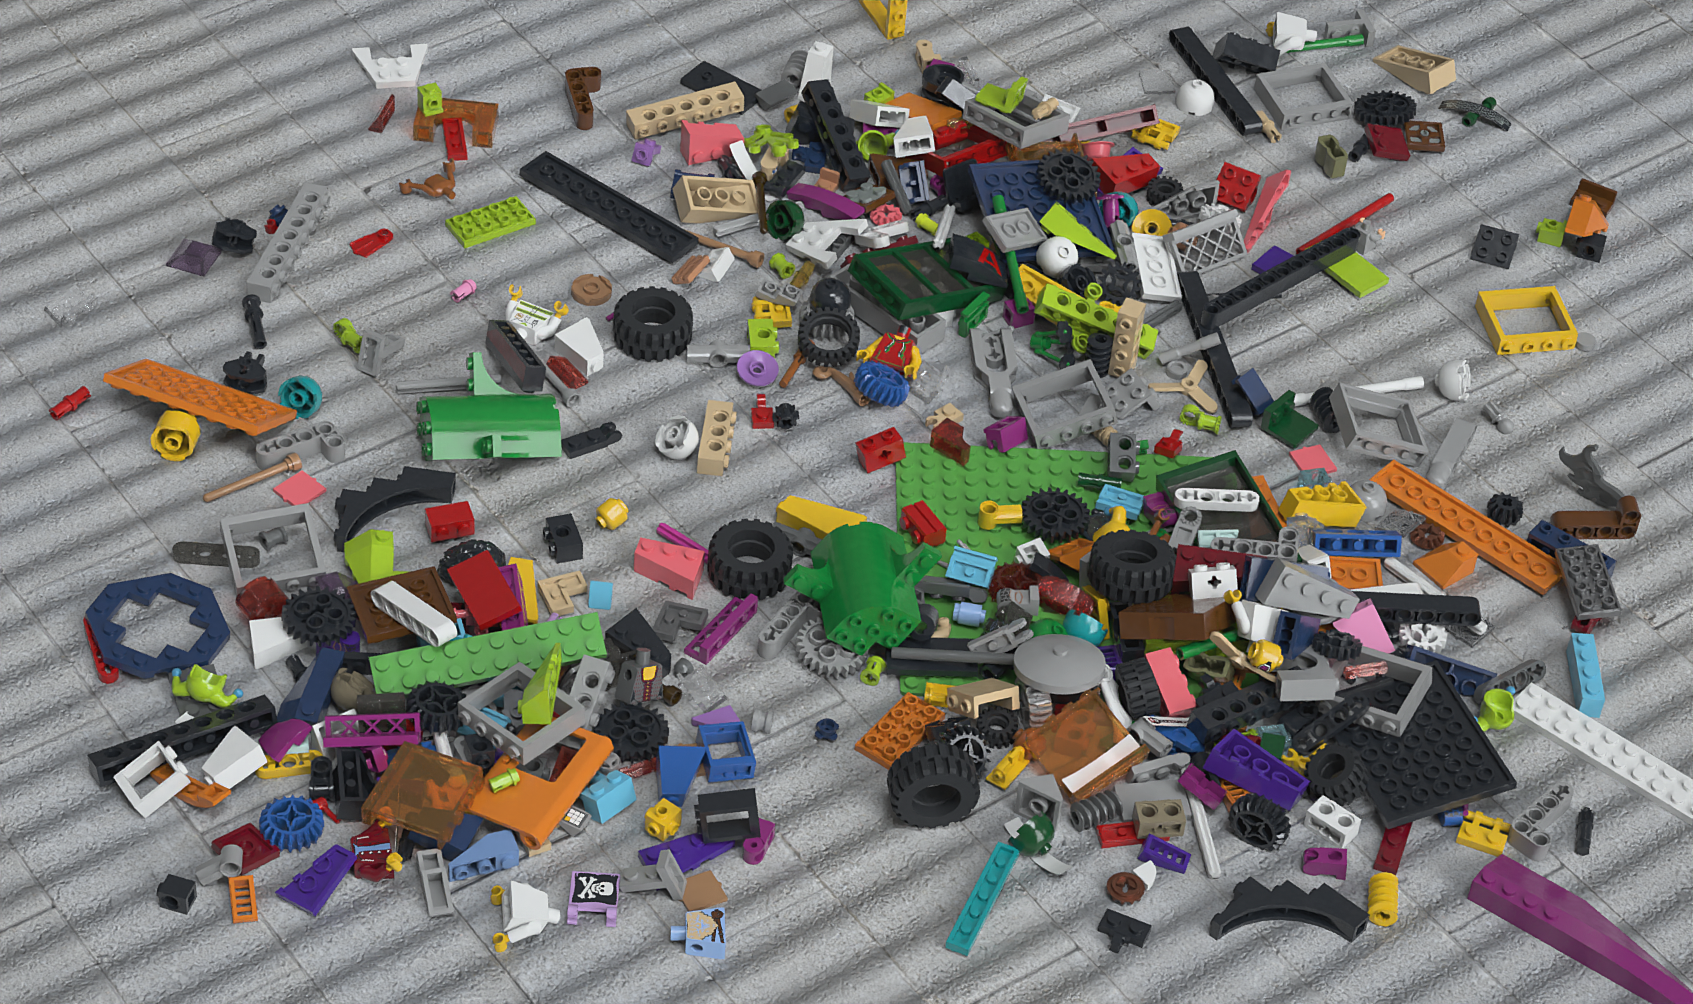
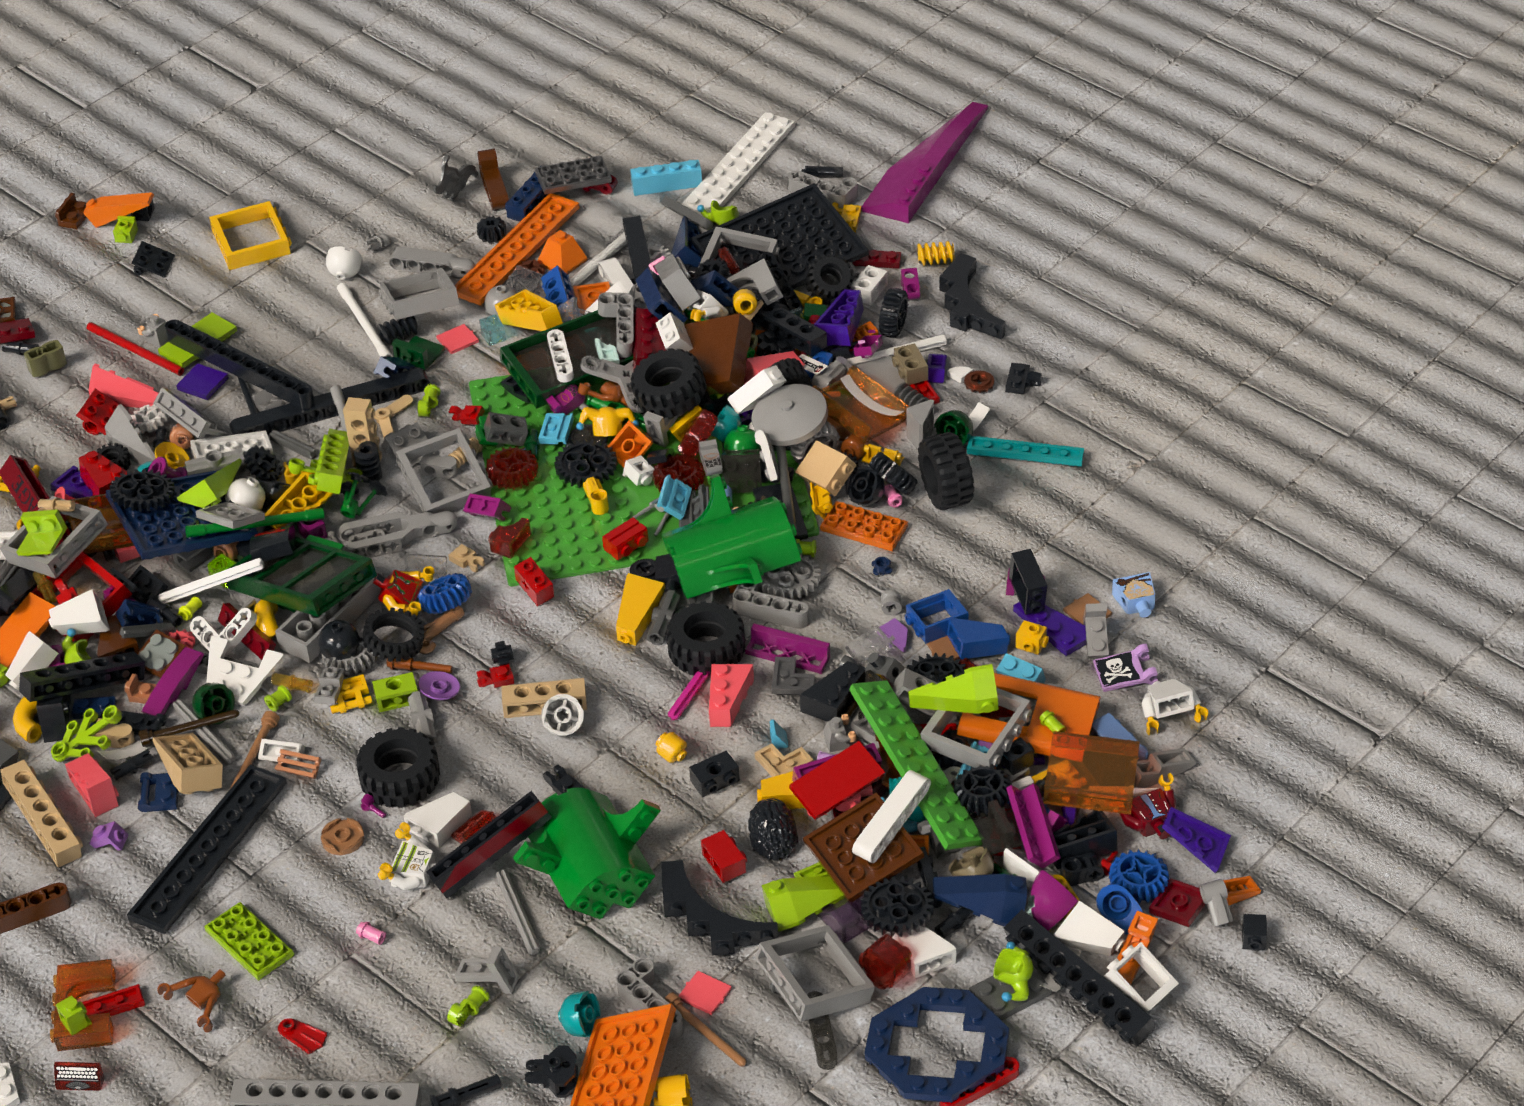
camera: 95 degrees left, 0 degrees up
(258, 796) = (1117, 905): none -> blue piece
(1062, 458) = (512, 468): none -> clear red gear
(1108, 644) = (756, 388): none -> white slope

